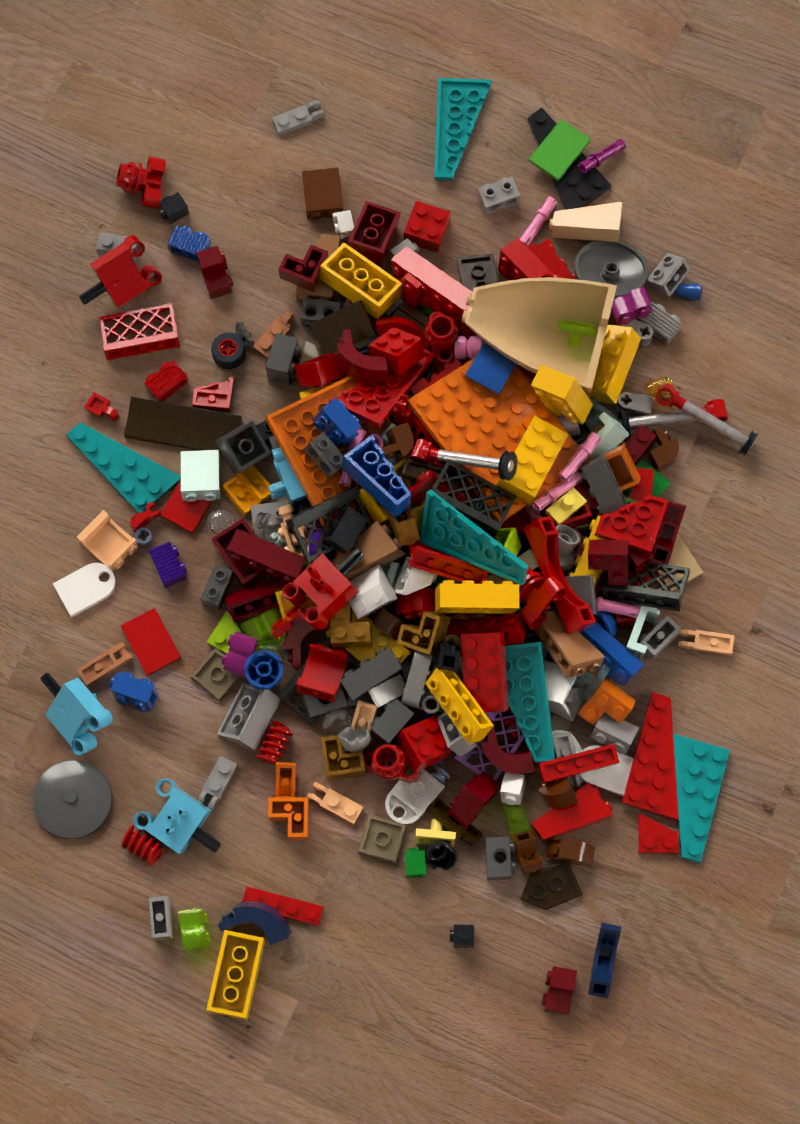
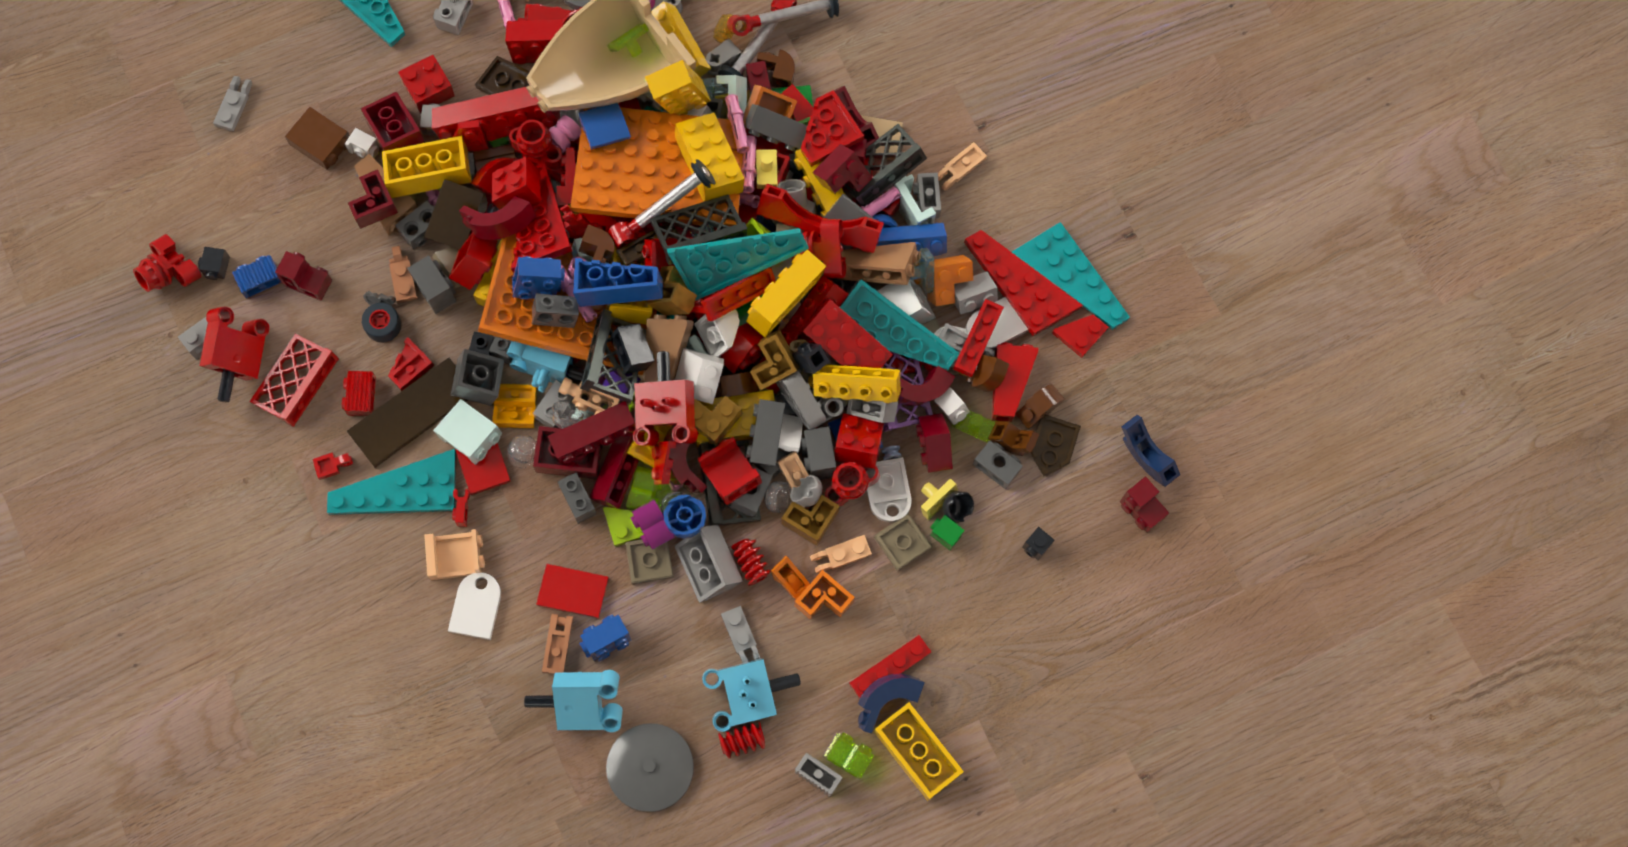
camera: 55 degrees left, 0 degrees up
(148, 539) = (474, 516): sand blue bush -> none
(167, 564) = (519, 521): dark purple brick -> none
(440, 810) = (921, 477): dark brown tile -> none

